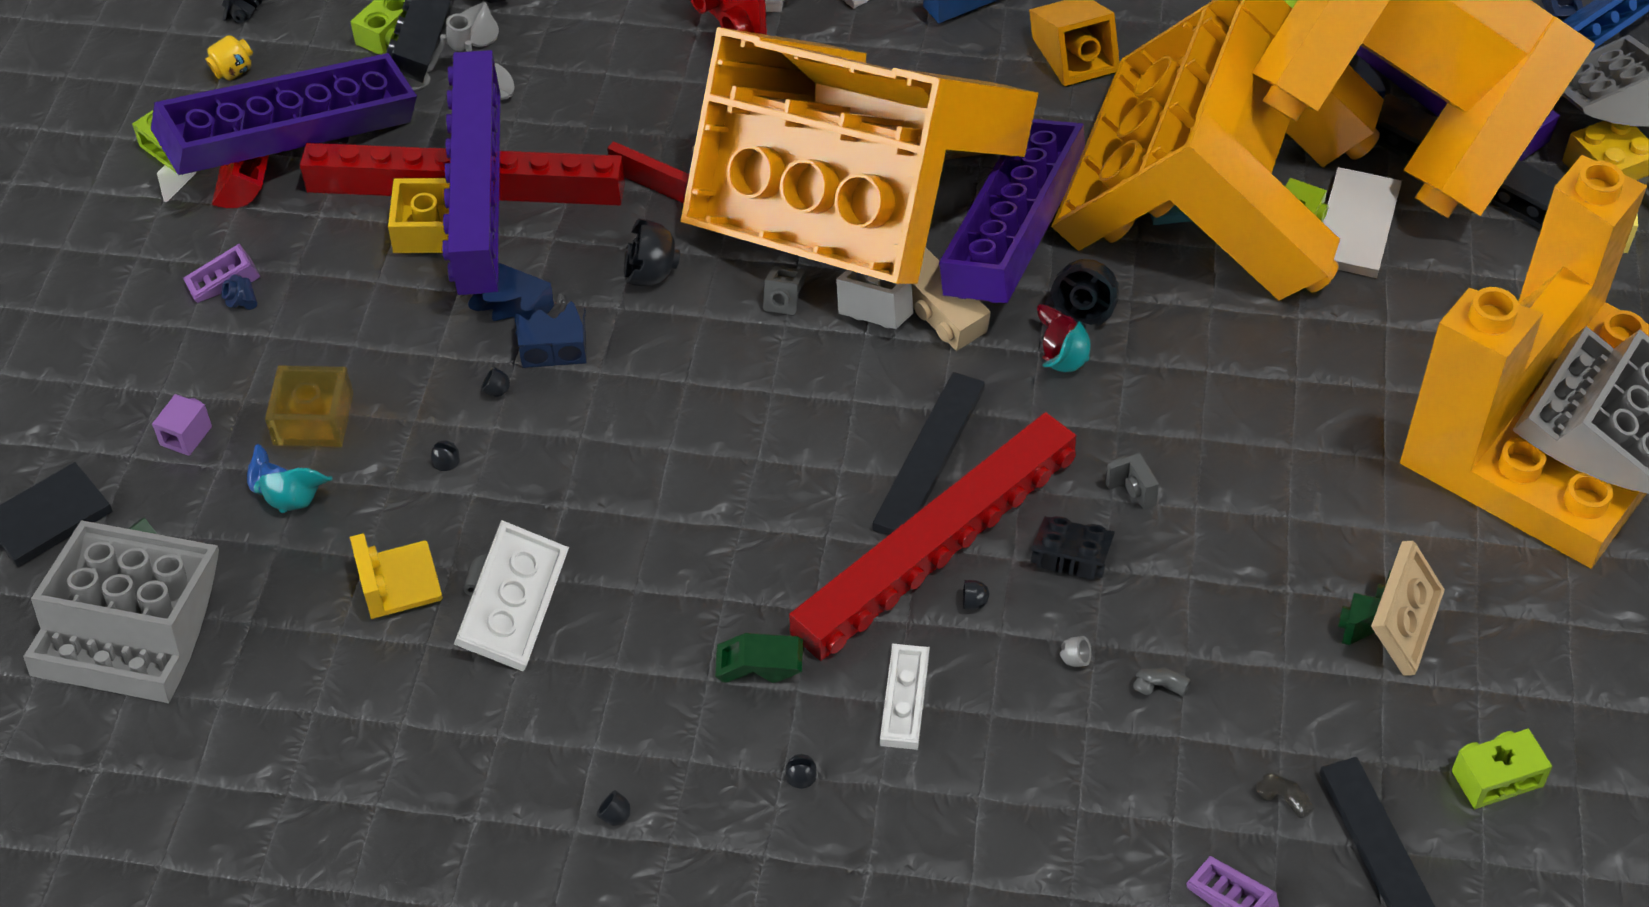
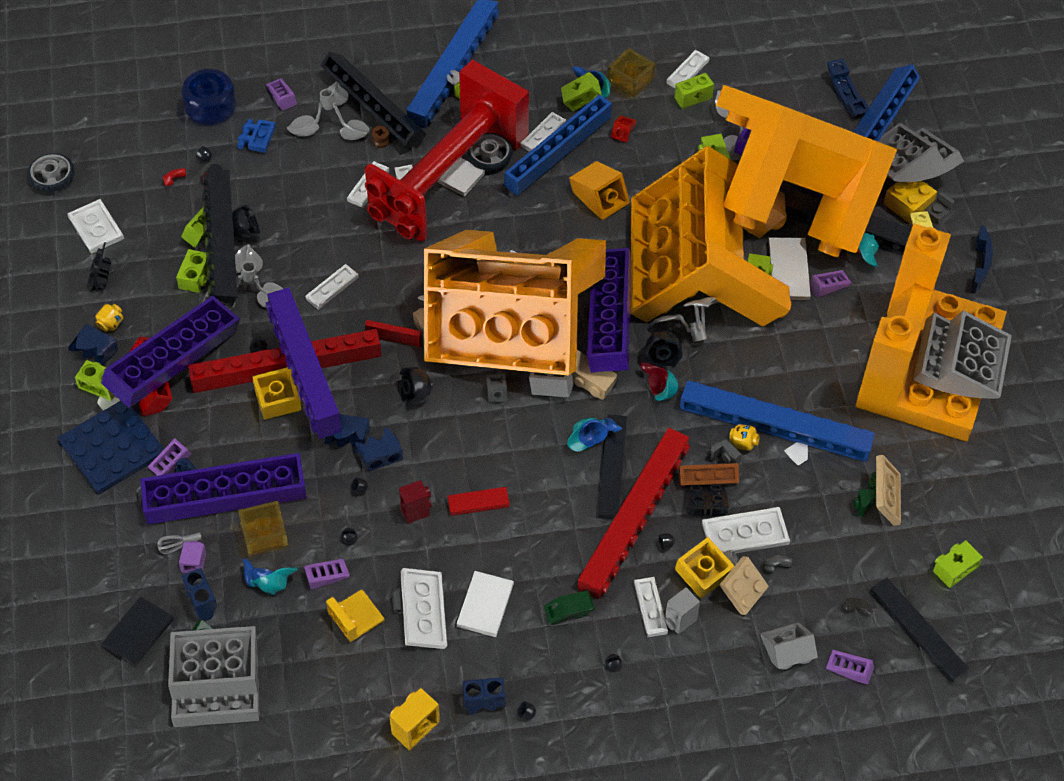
camera: 20 degrees left, 5 degrees up
(143, 236) = (111, 446): none -> dark blue plate
(163, 501) = (206, 609): none -> dark blue piece
(182, 79) = (94, 344): none -> dark blue piece
(205, 397) = (179, 539): none -> light grey piece
(276, 330) = (222, 488): none -> dark purple brick
(371, 490) = (321, 580): none -> medium lavender slope
(412, 765) = (414, 718): none -> yellow brick
(429, 142) = (254, 344): none -> black hinge
(565, 745) = (485, 686): none -> dark blue piece
(568, 423) = (415, 501): none -> dark red brick
(587, 89) = (331, 286): none -> white tile
(620, 617) = (485, 604): none -> white tile
(680, 453) = (478, 501): none -> red tile
(907, 391) = (590, 432): none -> blue hair
(951, 712) = (682, 611): none -> light grey brick
(1021, 652) = (704, 567): none -> yellow brick
(1081, 700) = (744, 585): none -> tan plate
(1091, 505) = (709, 474): none -> dark orange plate
(1125, 616) = (747, 530): none -> white tile
(1130, 827) = (789, 645): none -> light grey slope
(1158, 274) = (697, 328): none -> light grey plant
(1176, 461) = (744, 437): none -> yellow head
(1250, 451) = (777, 420): none -> blue brick
(1270, 510) = (798, 452): none -> white sticker
(1409, 258) = (820, 288): none -> medium lavender slope
(1507, 215) = (868, 248): none -> teal hair

